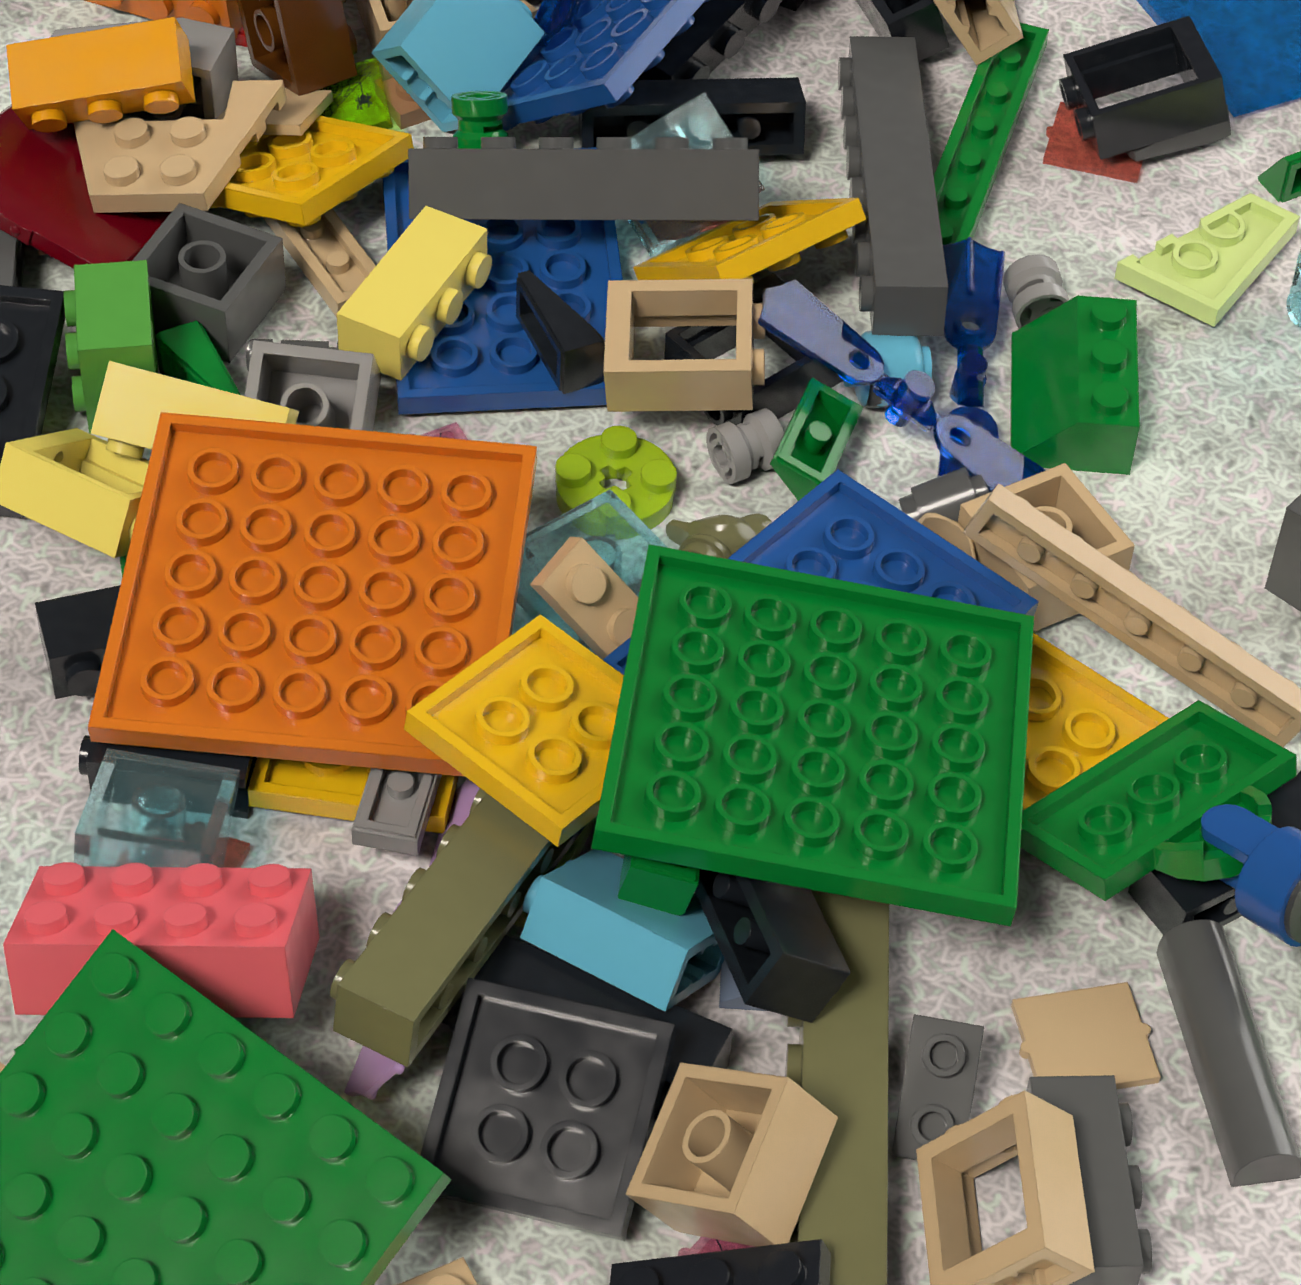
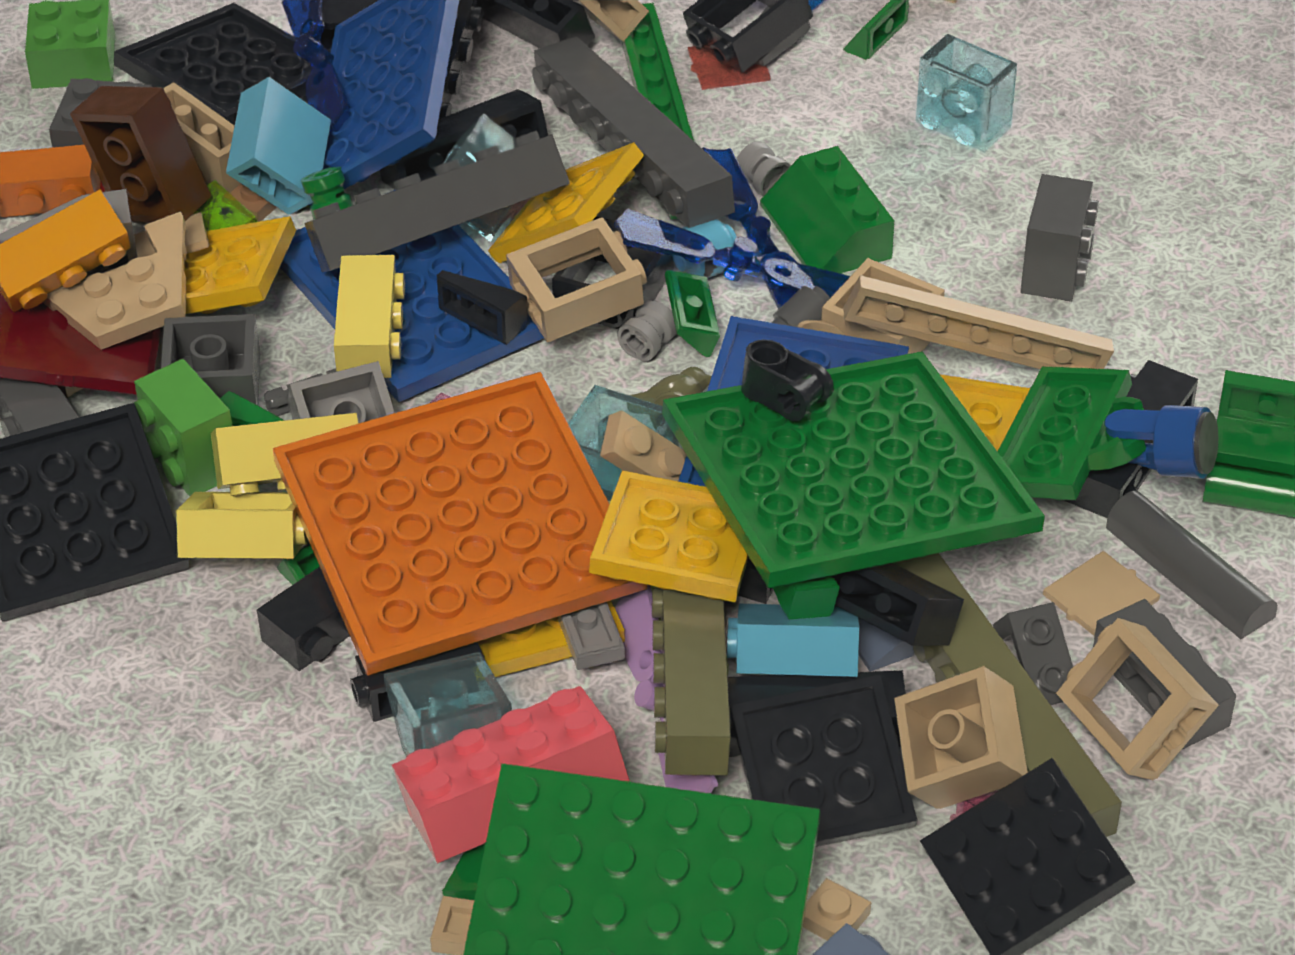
camera: 25 degrees left, 5 degrees down
(326, 256) = (288, 324): tan plate -> none
(622, 456) = (577, 369): lime plate -> none
(805, 580) = (779, 379): none -> black piece
(1215, 262) = (855, 109): yellowish green wing -> none

